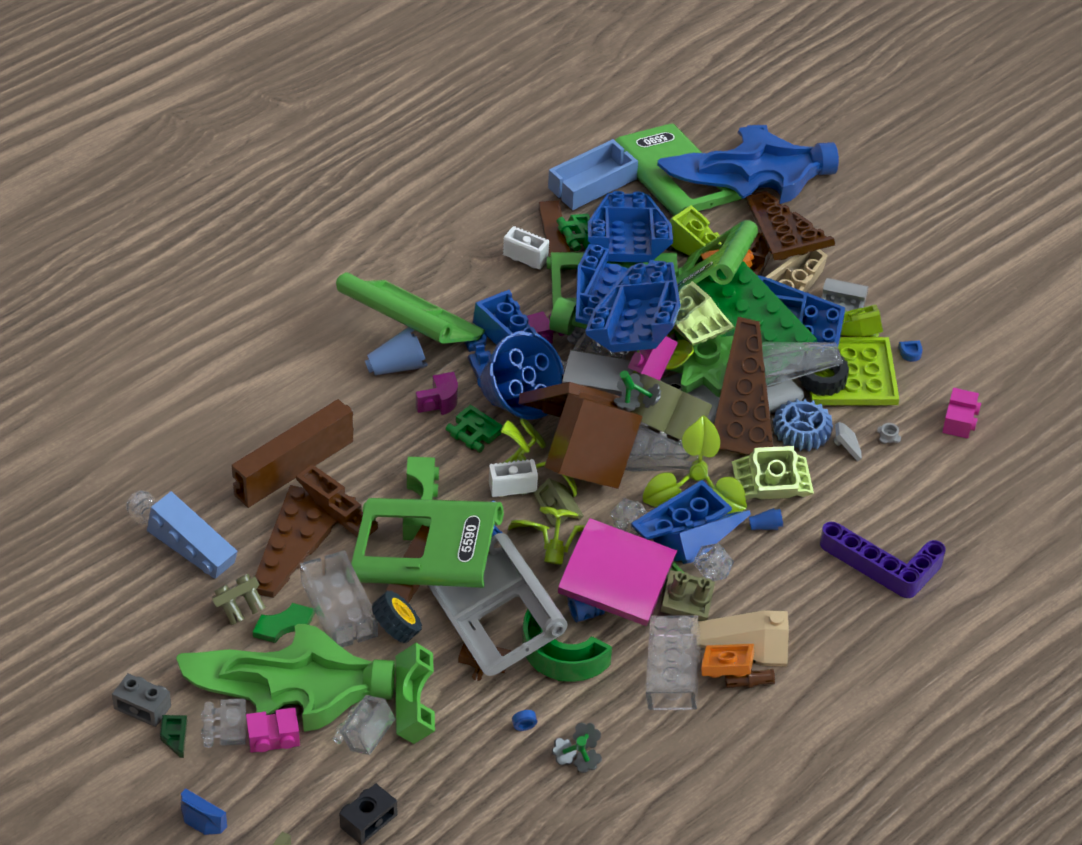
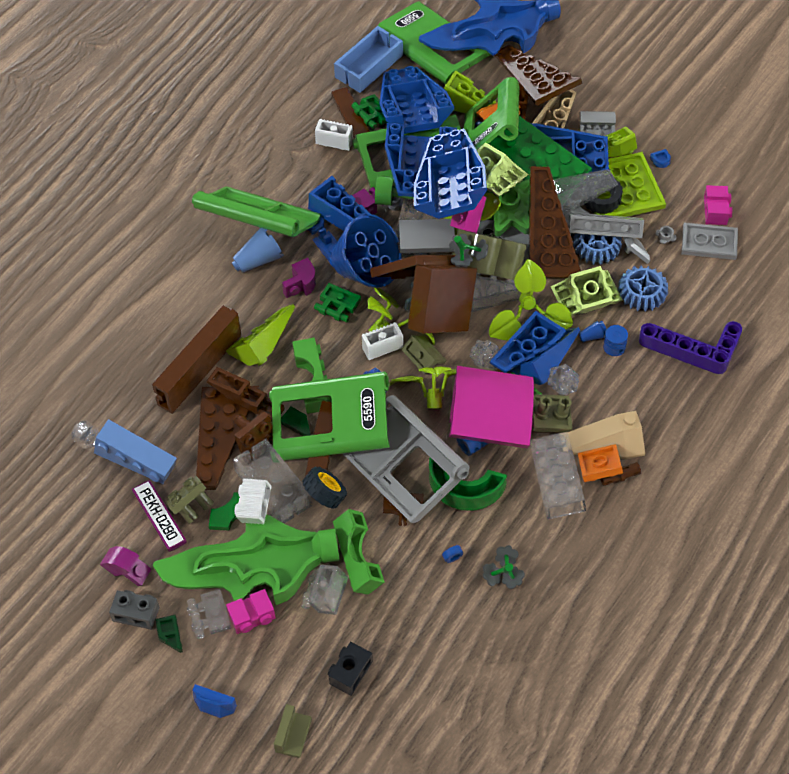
camera: 10 degrees left, 10 degrees up
(146, 647) = (125, 562): none -> magenta brick
(200, 610) = (159, 516): none -> tile
(308, 610) = (253, 501): none -> white brick
(332, 540) = (253, 431): none -> reddish brown plate
(373, 451) = (263, 339): none -> lime wedge
(386, 543) = (296, 421): none -> dark green tile
(789, 534) = (615, 340): none -> blue piece
(816, 406) = (606, 225): none -> light grey fence
(841, 485) = (653, 293): none -> medium blue gear
(940, 451) = (709, 241): none -> light grey tile

